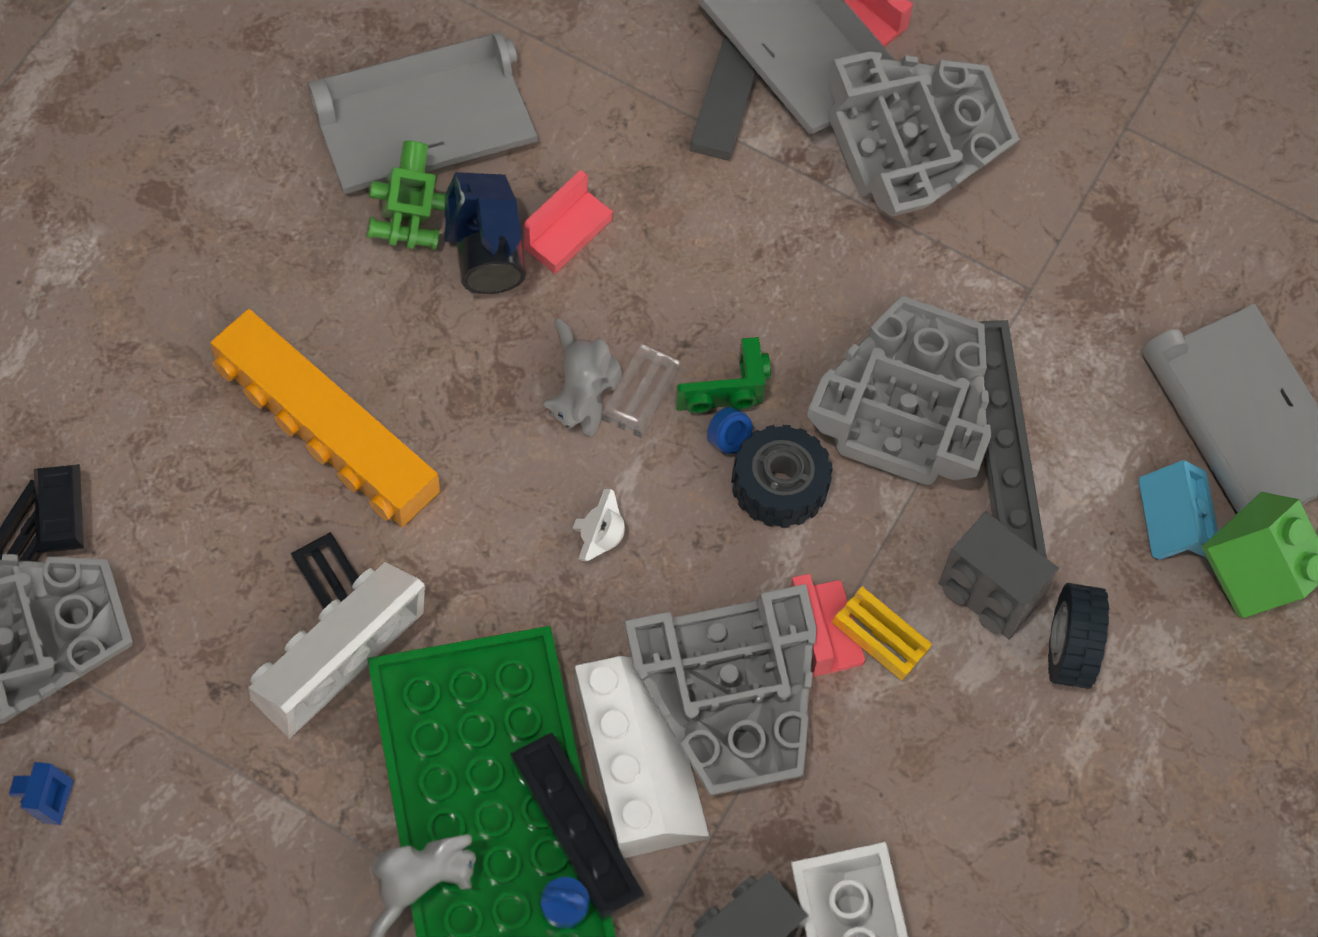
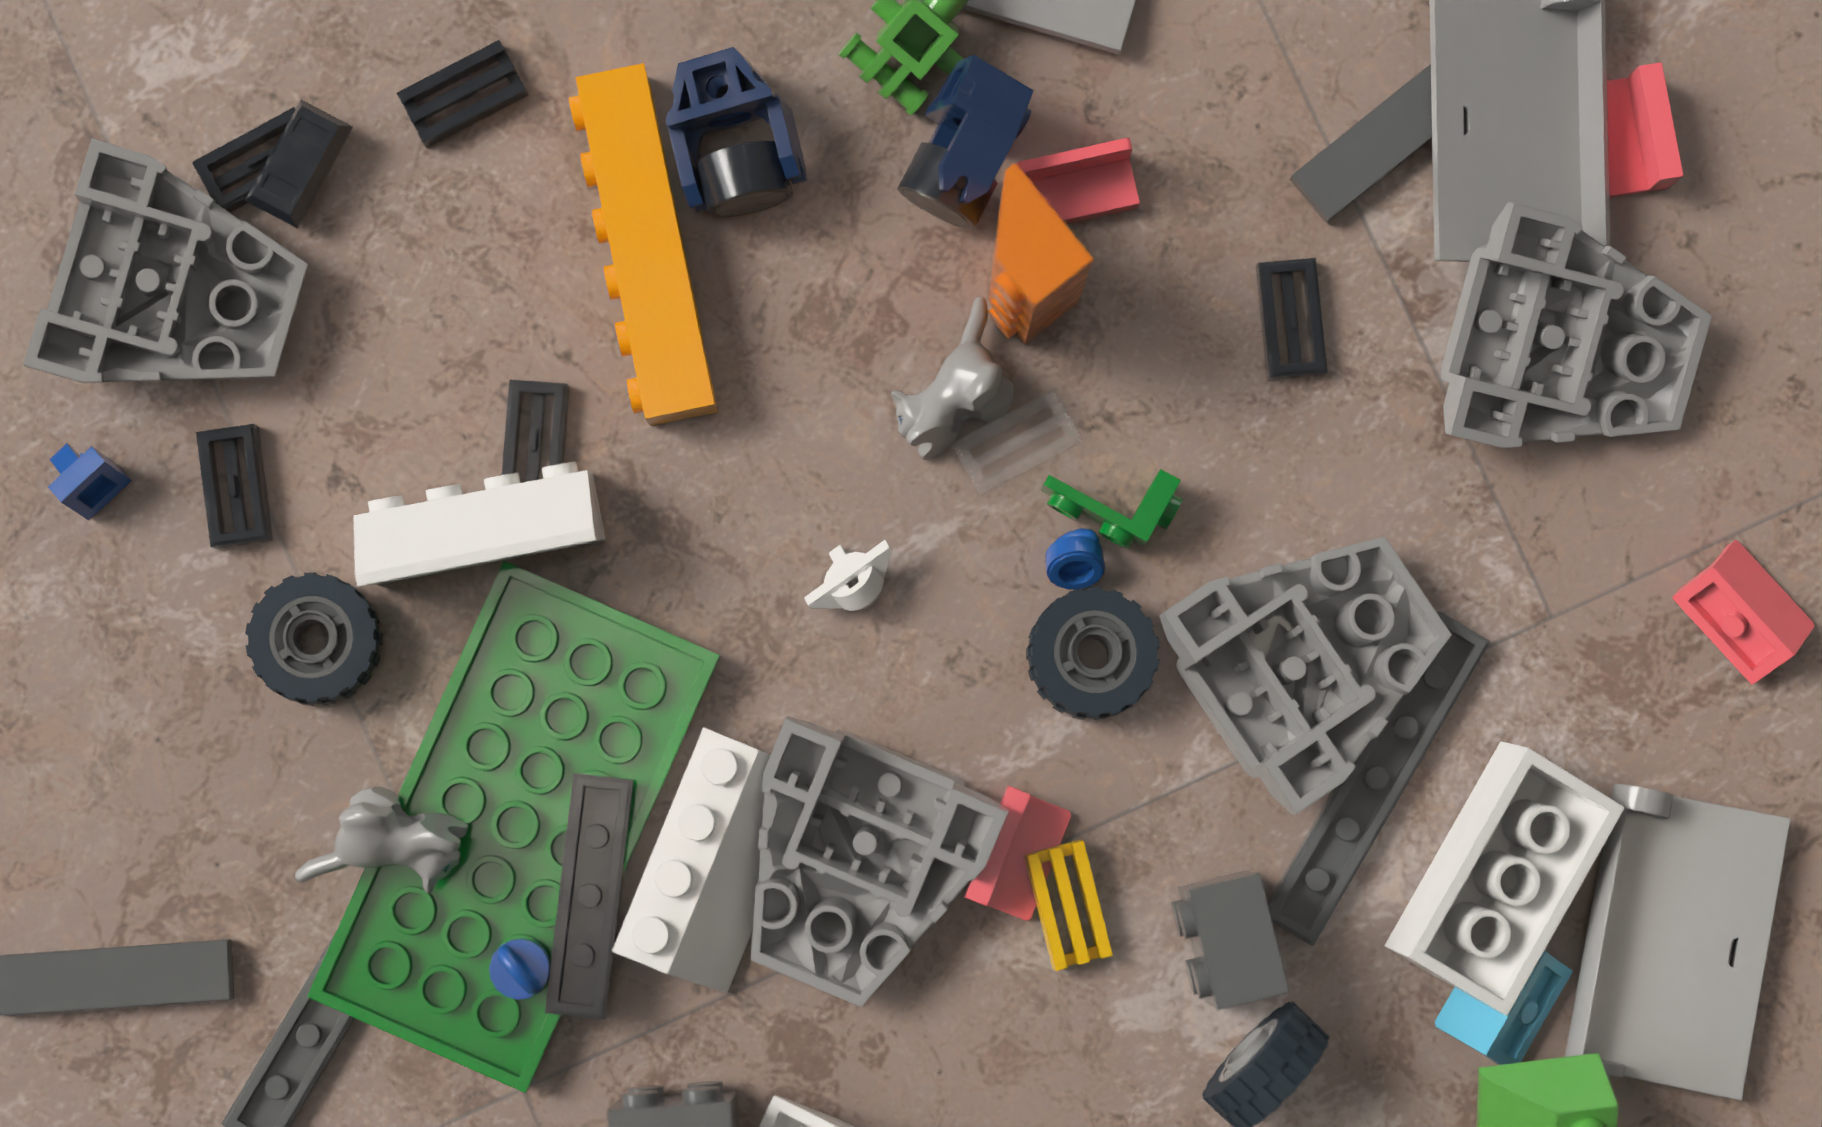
camera: 40 degrees right, 20 degrees up
(118, 407) = (462, 68): none -> black tile
(173, 765) = (257, 484): none -> black tile
(276, 820) = (287, 613): none -> black wheel
(359, 334) = (743, 178): none -> dark blue piece
(576, 255) = (1035, 262): none -> orange slope
(740, 232) = (1295, 368): none -> black tile
(1124, 437) = (1504, 876): none -> white slope
(1136, 215) = (1745, 613): none -> coral panel

